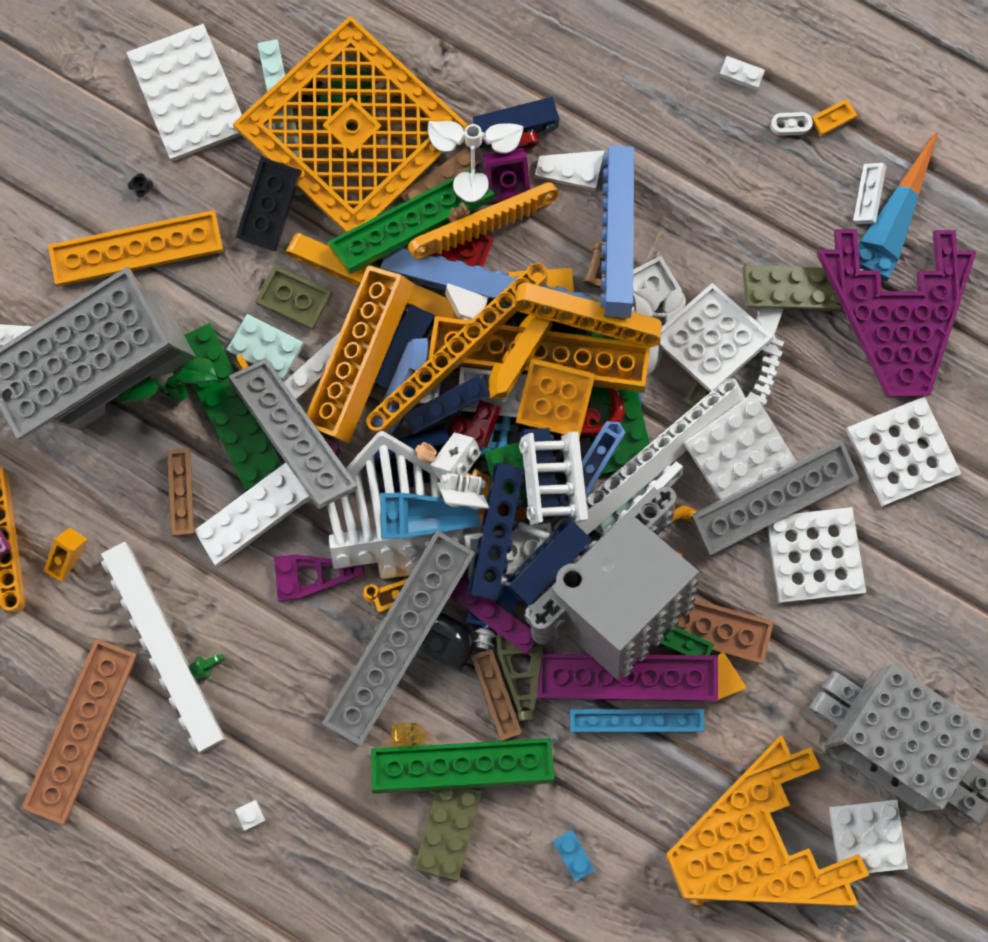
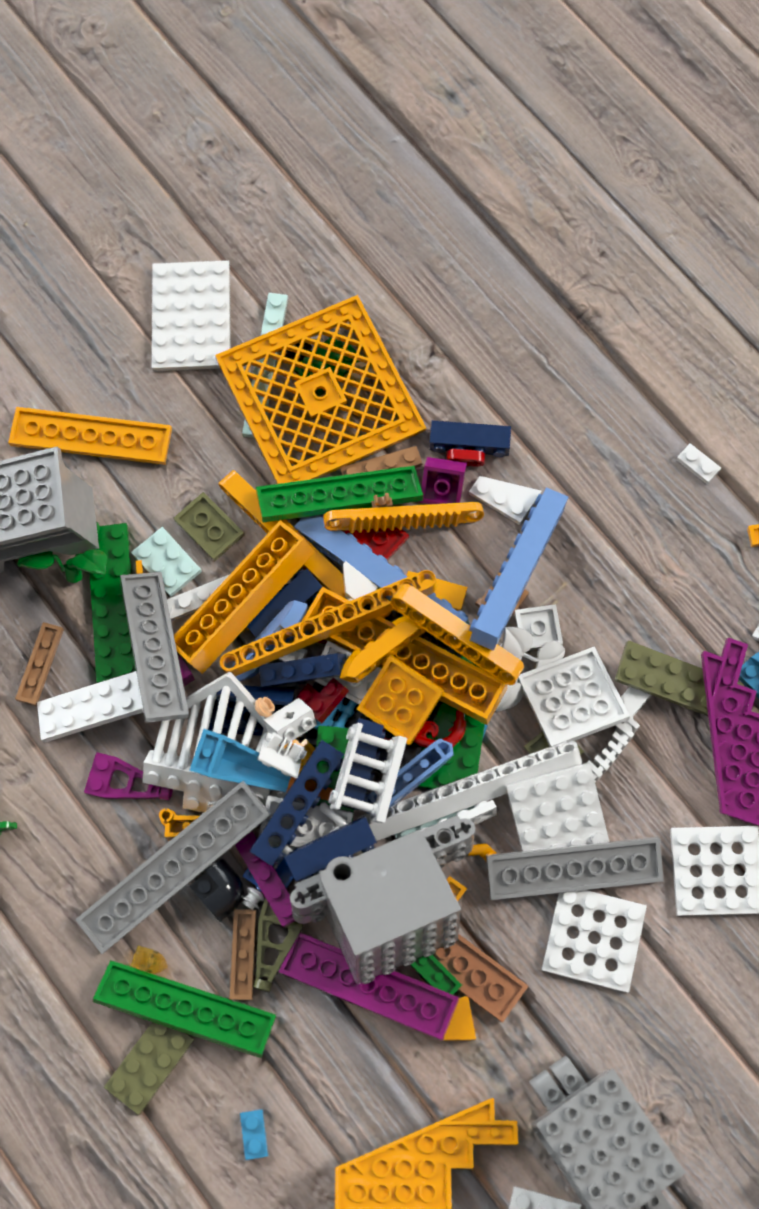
camera: 30 degrees right, 5 degrees down
(140, 179) = (117, 376): black plate -> none
(268, 203) = (218, 436): black plate -> none
(447, 134) = (403, 428): white plant -> none
(637, 720) = (363, 1030): dark azure plate -> none
(790, 123) = (726, 526): white plate -> none

